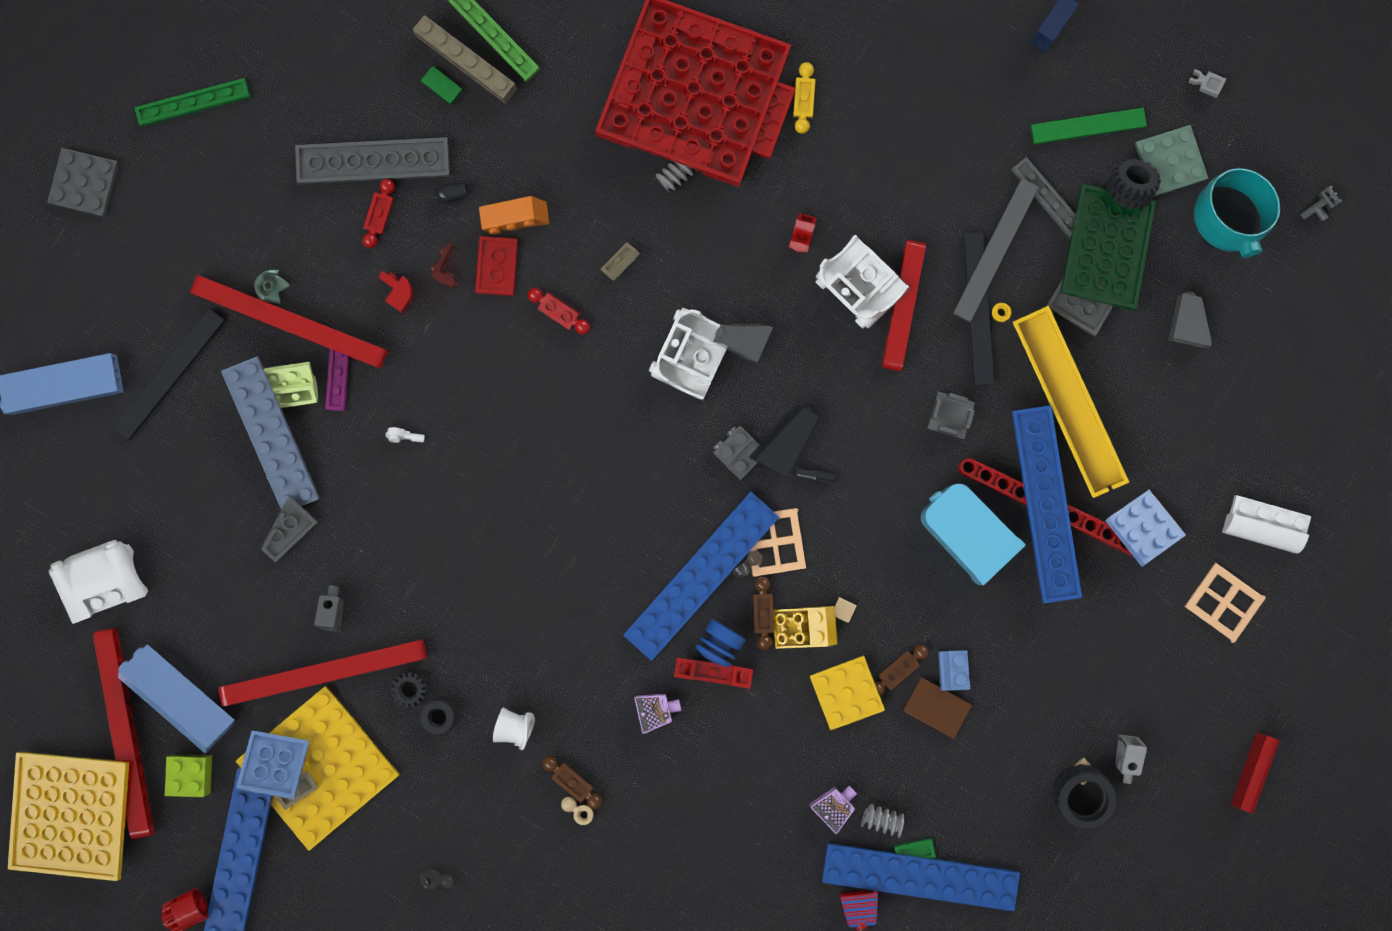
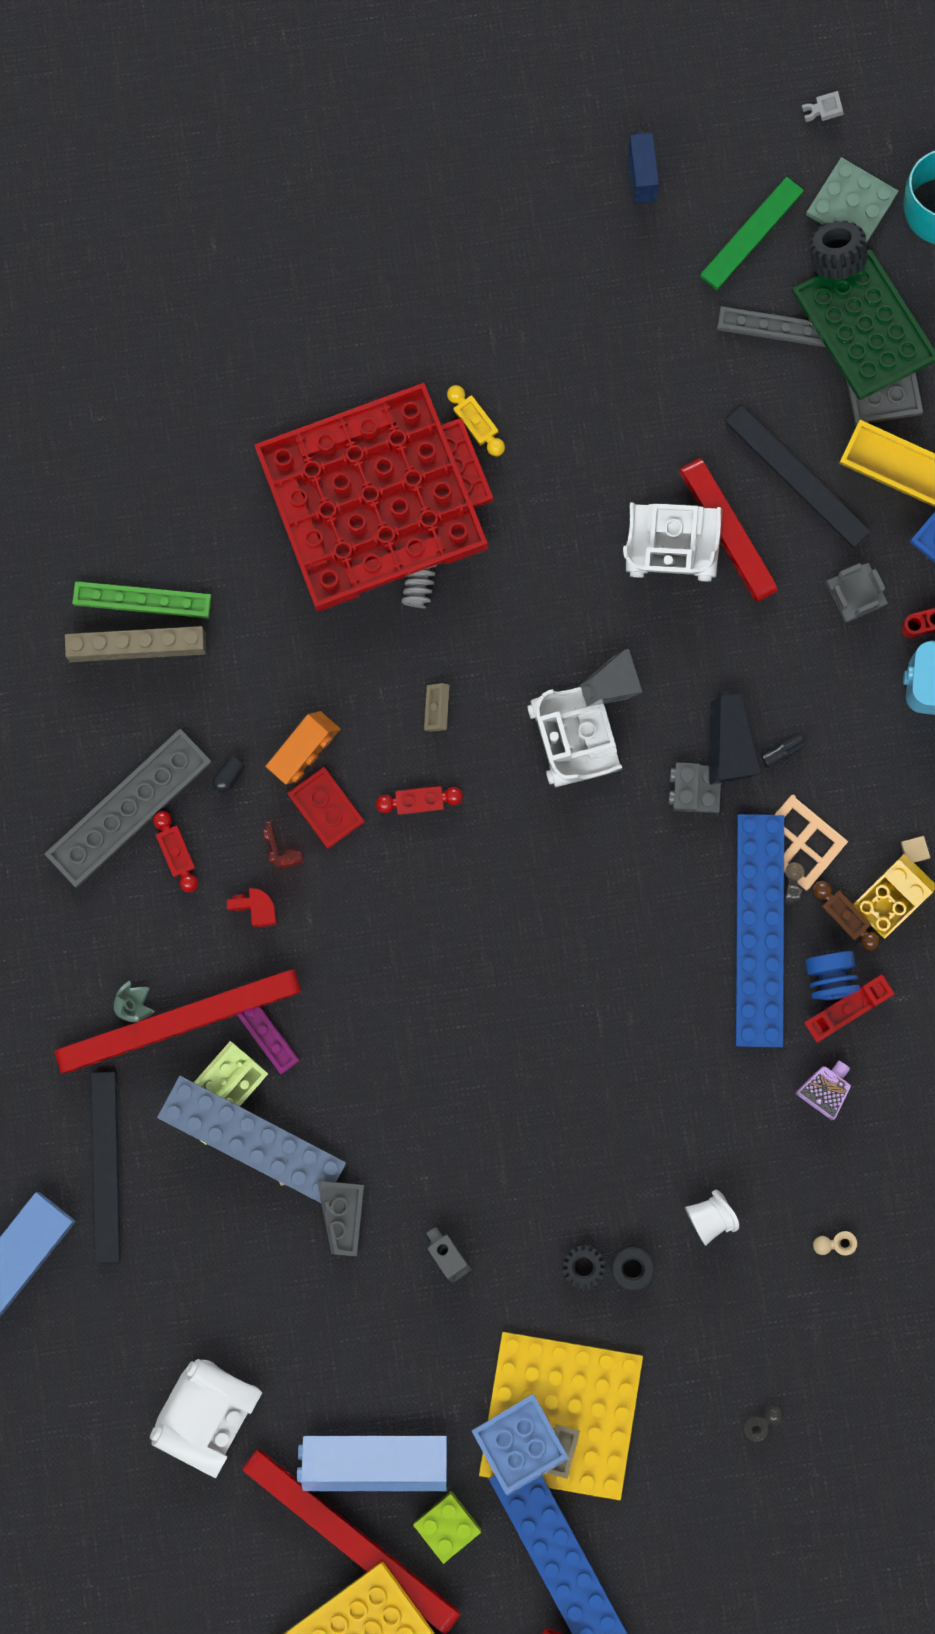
camera: 35 degrees left, 5 degrees down
(322, 673) = (489, 1322): red beam -> none
(398, 434) = (367, 1040): white plate -> none
(441, 85) = (133, 686): green tile -> none
(572, 782) = (808, 1222): reddish brown plate -> none
(802, 233) = (581, 542): red brick -> none
(995, 250) = (767, 411): dark grey tile -> none
(1007, 312) = (825, 457): yellow plate -> none

